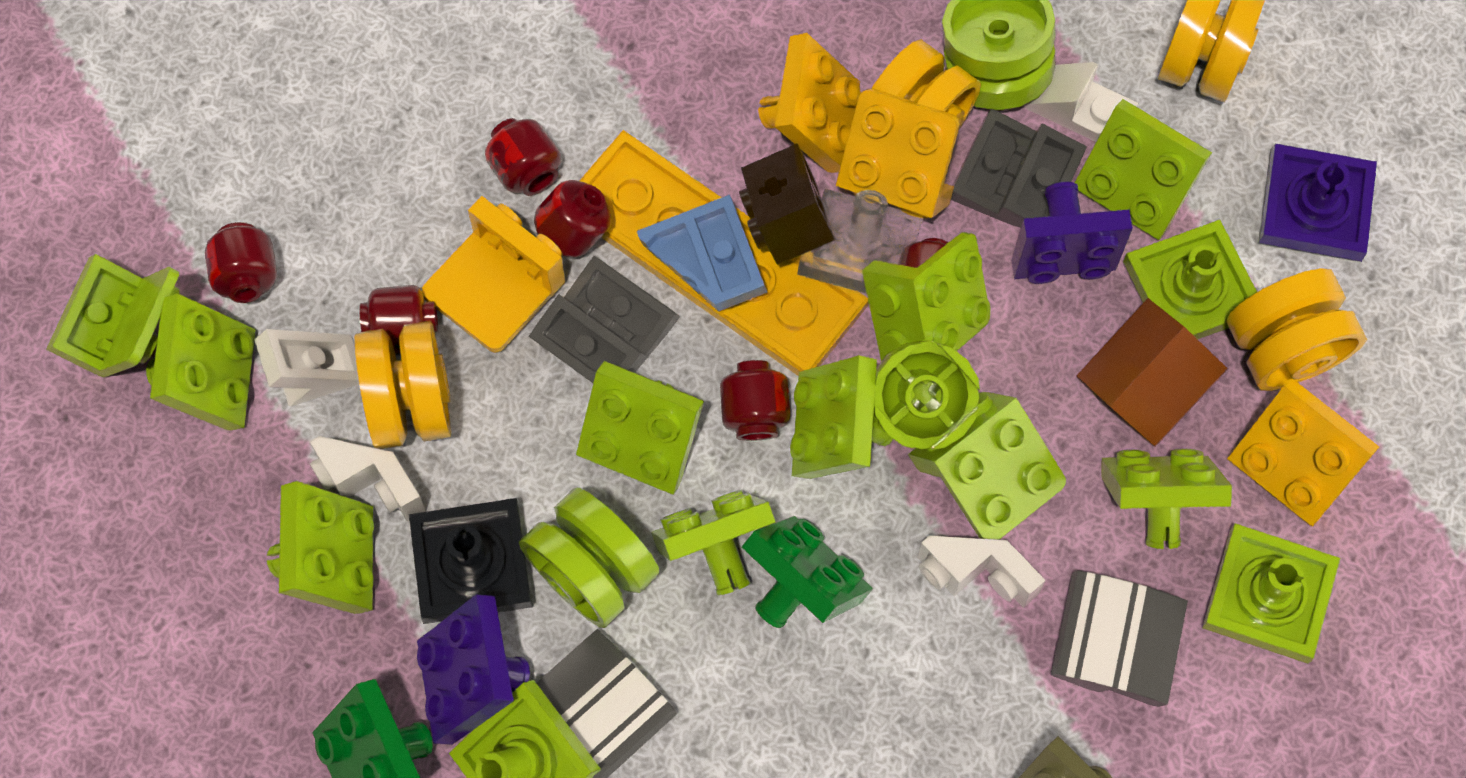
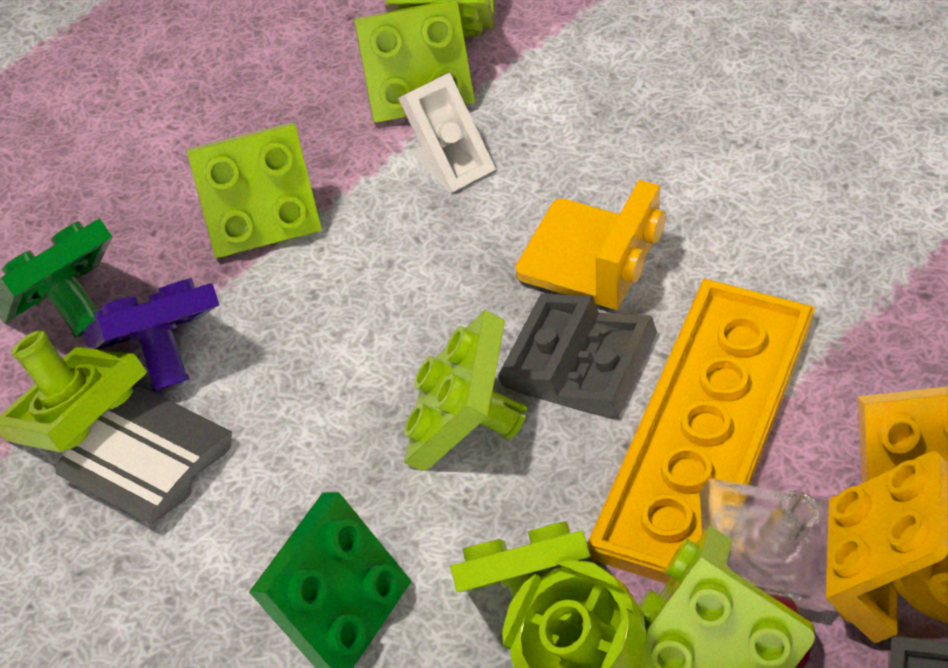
camera: 80 degrees right, 20 degrees down
(240, 260) = (531, 65): dark red head -> none
(356, 467) = (347, 216): white slope -> none
(393, 308) = (515, 187): dark red head -> none
(395, 386) = (435, 192): yellow wheel -> none
(469, 554) = (281, 310): black plate -> none
(523, 156) = (738, 230): dark red head -> none
(573, 217) = (679, 278): dark red head -> none
(589, 557) = (290, 382): lime wheel -> none
(708, 253) = (691, 406): medium blue wing -> none
(715, 534) = (357, 478): lime plate -> none
(755, 401) = (530, 495): dark red head -> none
(785, 205) = (777, 450): dark brown brick -> none

